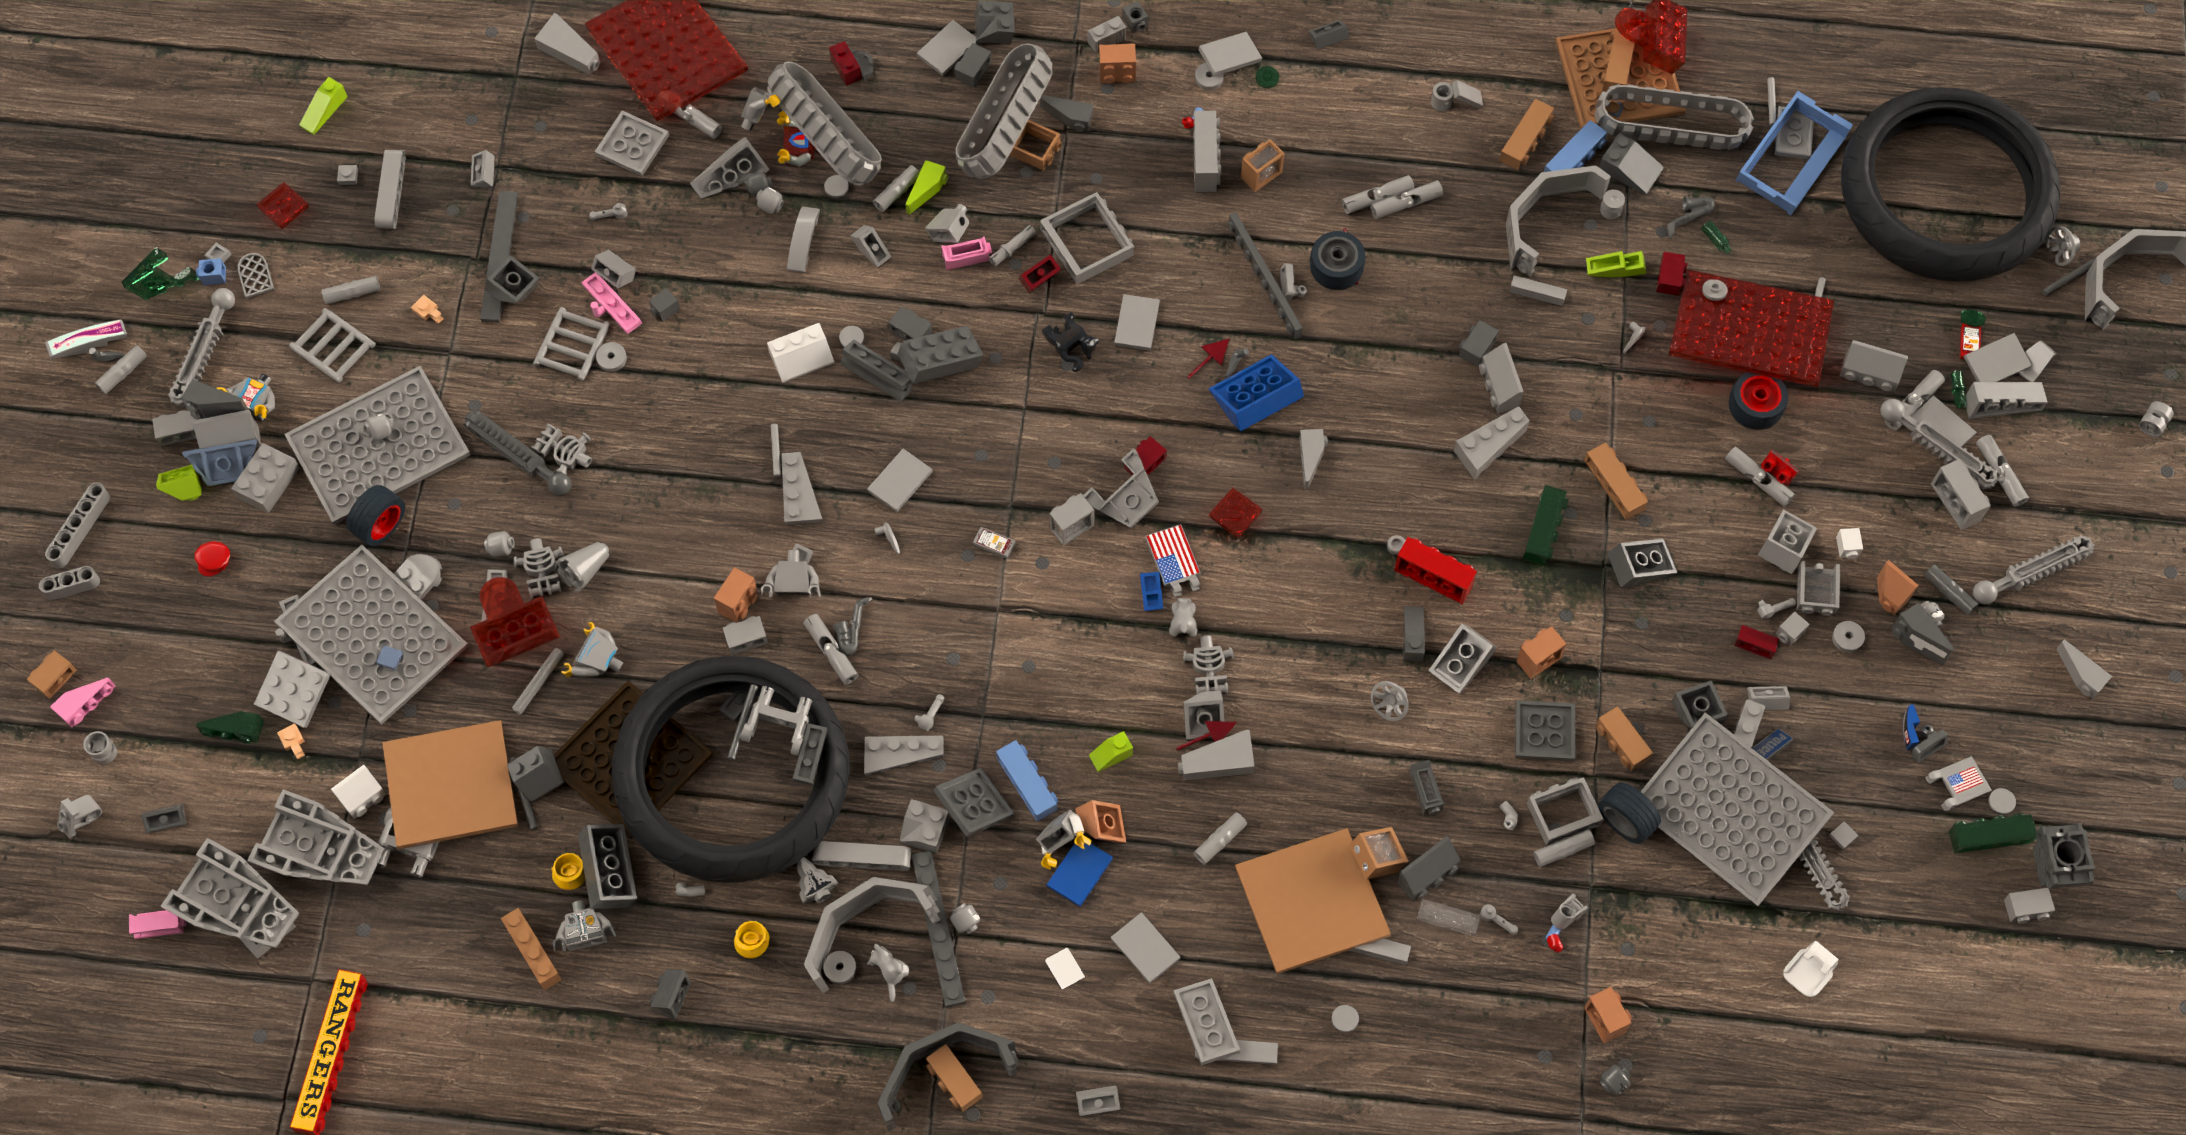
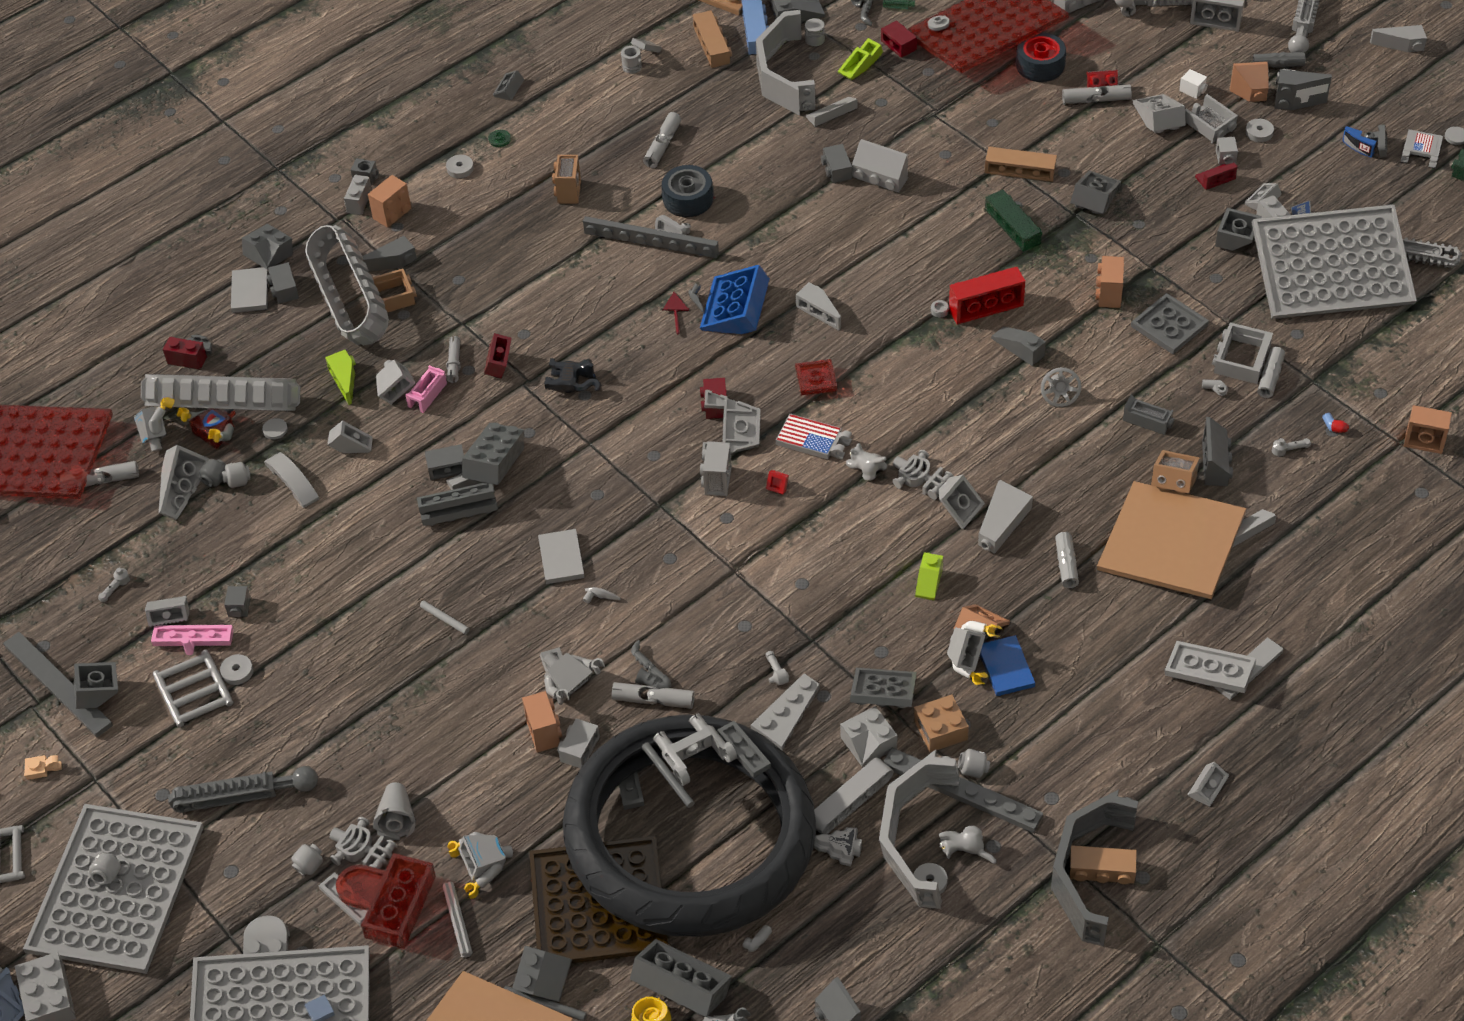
camera: 45 degrees left, 15 degrees down
(375, 515) = (182, 924): black wheel -> none
(568, 446) = (257, 763): light grey piece -> none
(632, 143) = (76, 528): light grey plate -> none
(751, 939) = (845, 924): yellow piece -> none
(798, 495) = (499, 629): light grey wing -> none
(800, 352) = (384, 543): white slope -> none
(851, 333) = (407, 504): light grey piece -> none
(896, 188) = (323, 394): light grey axle -> none
(980, 867) = (941, 723): none -> medium nougat piece
(994, 542) = (678, 534): tile -> none
(1026, 780) = (897, 645): medium blue brick -> none
(1064, 968) = (1076, 731): white sticker -> none
(1093, 201) = (485, 332): light grey window -> none
(1104, 570) = (777, 482): none -> red tile
(1137, 322) = (600, 332): light grey tile -> none
(1145, 948) = (1110, 667): light grey tile -> none
(1151, 591) = (822, 468): blue slope -> none
(1188, 122) = (483, 195): red arm -> none
(1206, 151) = (518, 201): light grey brick -> none
(1217, 730) = (979, 503): dark red piece -> none
(1230, 53) = (458, 142): light grey tile -> none
(1345, 1018) = (1285, 584): light grey piece -> none
(1404, 200) = (684, 128): light grey piece -> none
(1448, 917) = (1260, 472): clear plate -> none
(1462, 658) = (1067, 327): light grey slope -> none
(1490, 441) = (918, 209): light grey wedge -> none
(1568, 912) = (1324, 401): light grey piece -> none
(1623, 739) = (1219, 286): medium nougat brick -> none
(1629, 812) = (1284, 312): black wheel -> none
(1638, 332) = (922, 83): light grey bar -> none
(1766, 611) = (1199, 154): light grey piece -> none
(1843, 835) = (1406, 226): light grey tile -> none

